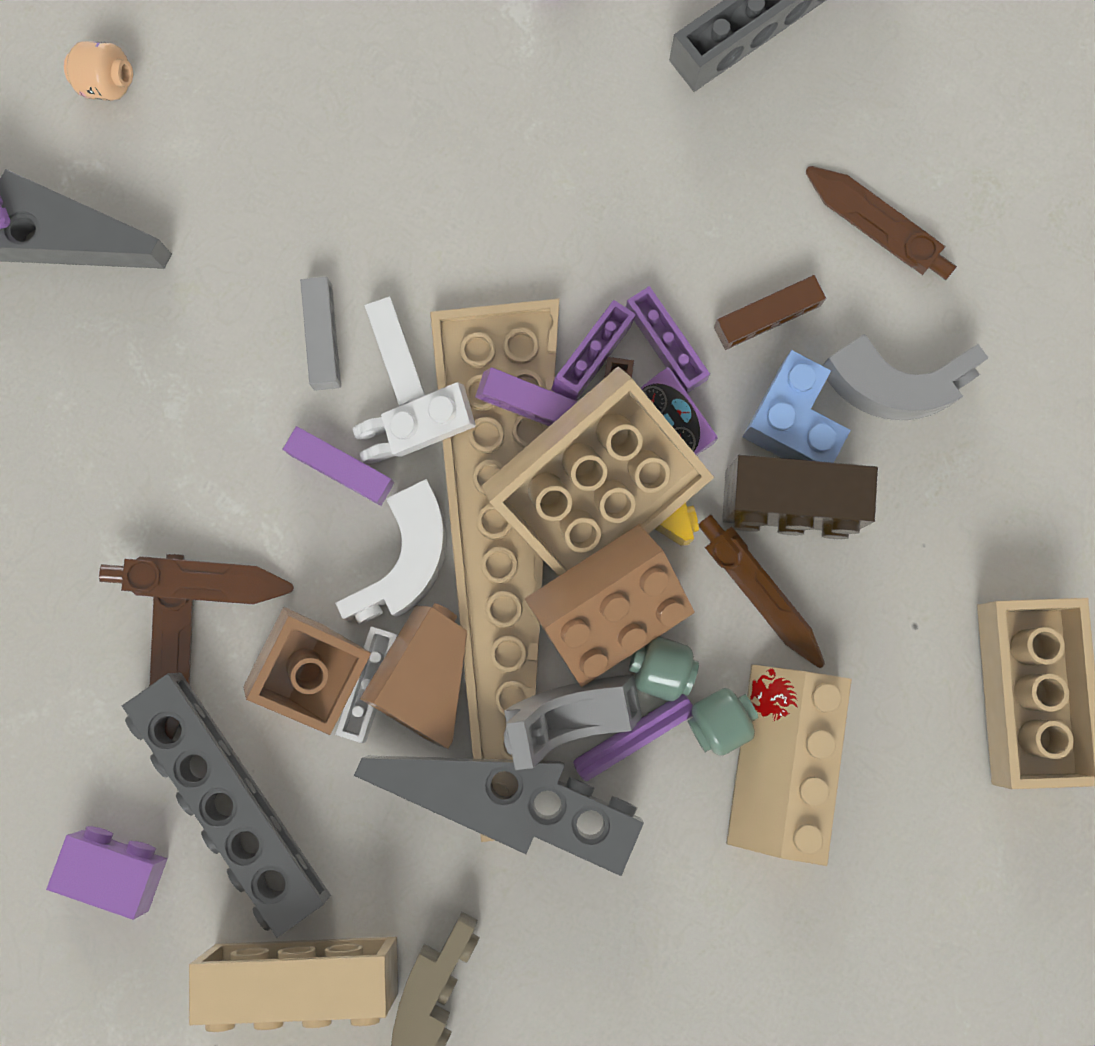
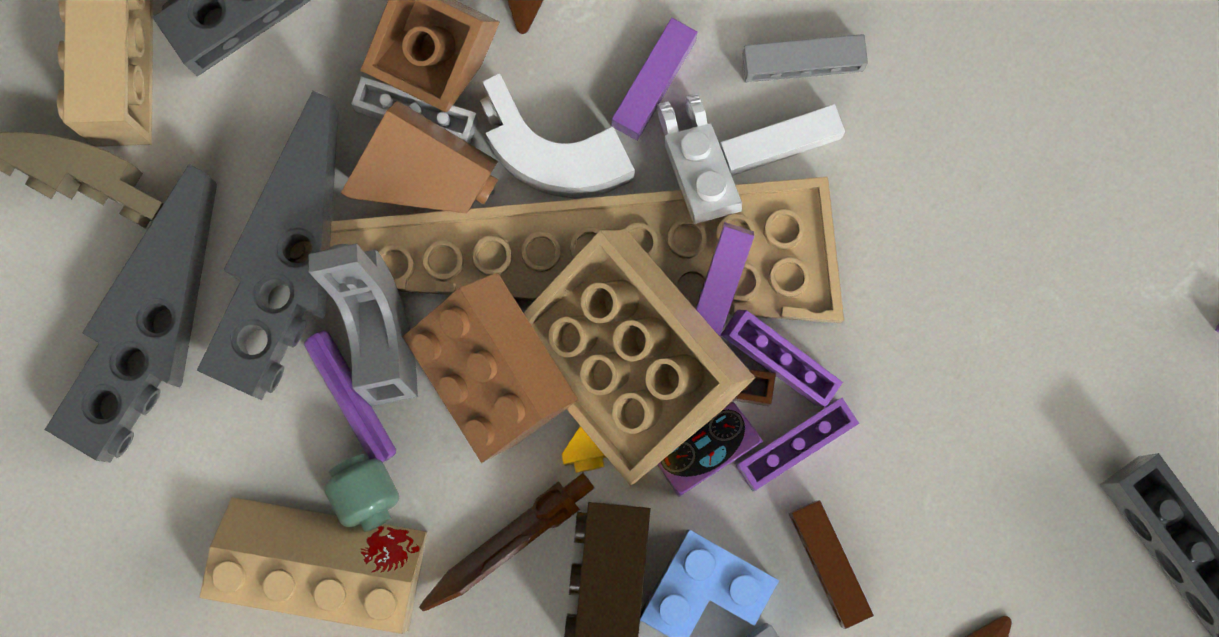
camera: 85 degrees right, 0 degrees up
(526, 922) = (157, 277): none -> dark grey brick
(664, 669) = (421, 430): sand green head -> none

